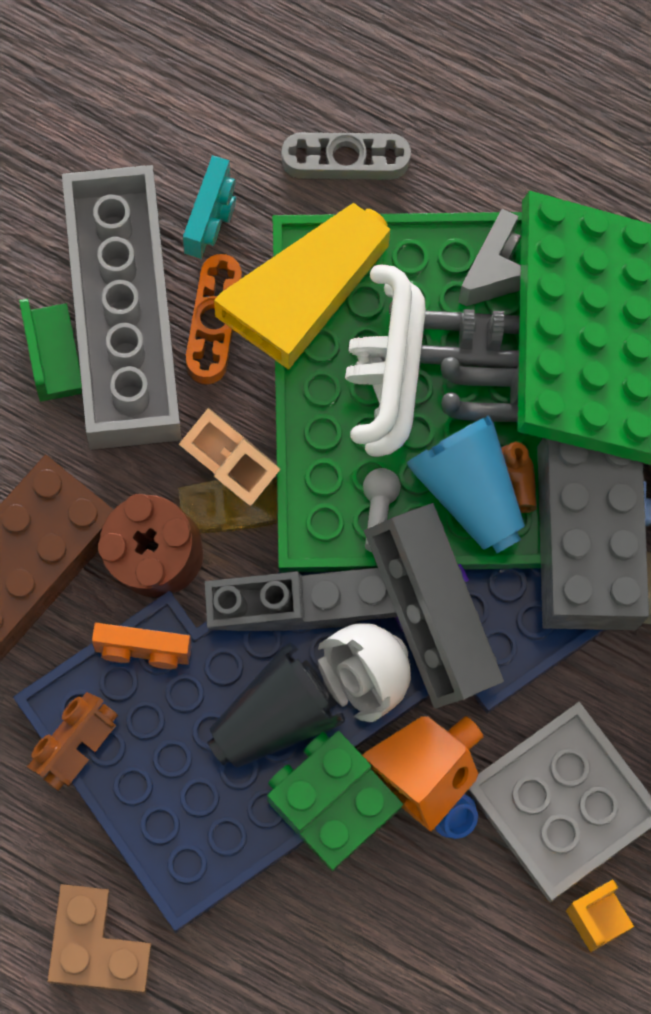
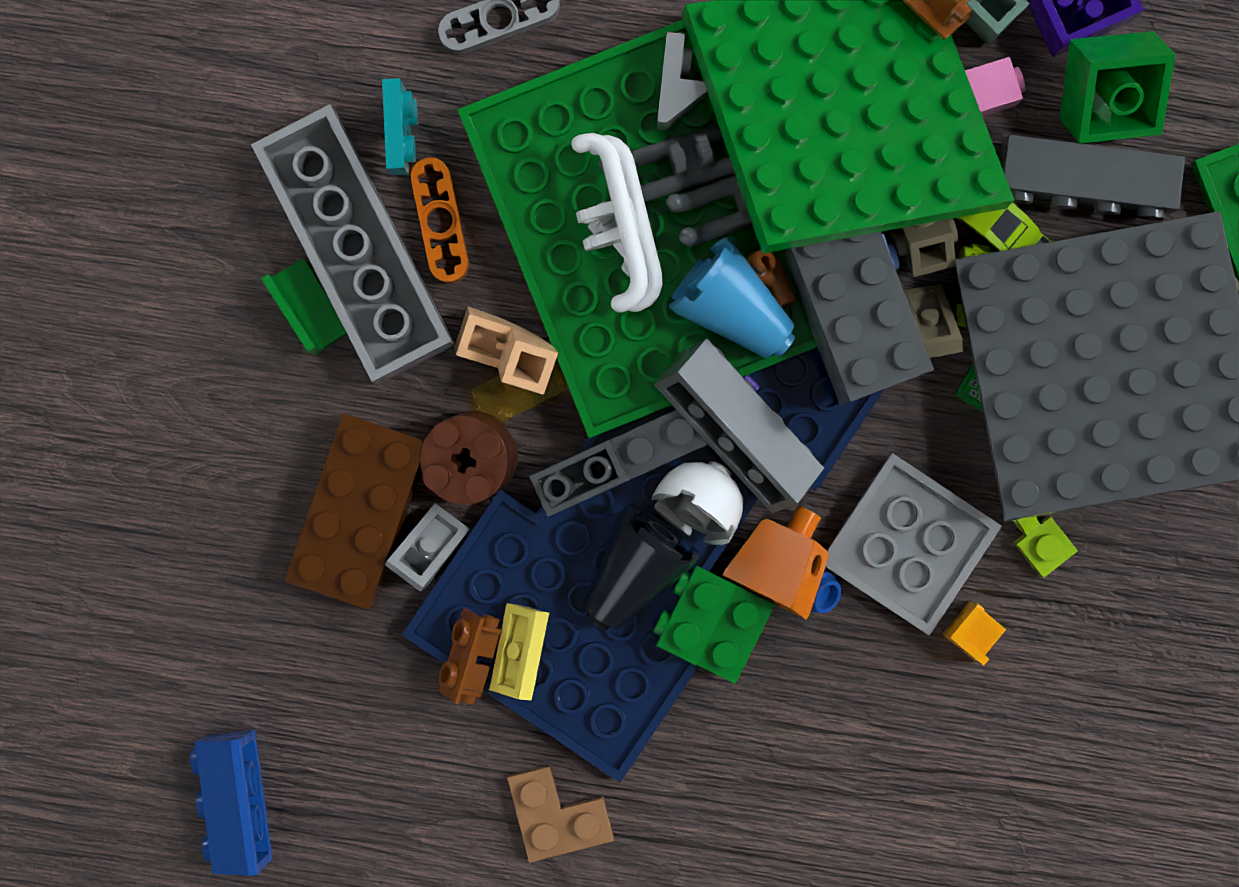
camera: 10 degrees left, 15 degrees up
(72, 617) = (427, 547): none -> light grey slope
(122, 642) = (478, 558): orange plate -> none
(125, 752) = (519, 651): none -> light yellow plate
(302, 287) = (512, 173): yellow slope -> none
(381, 489) = (653, 332): light grey bar -> none

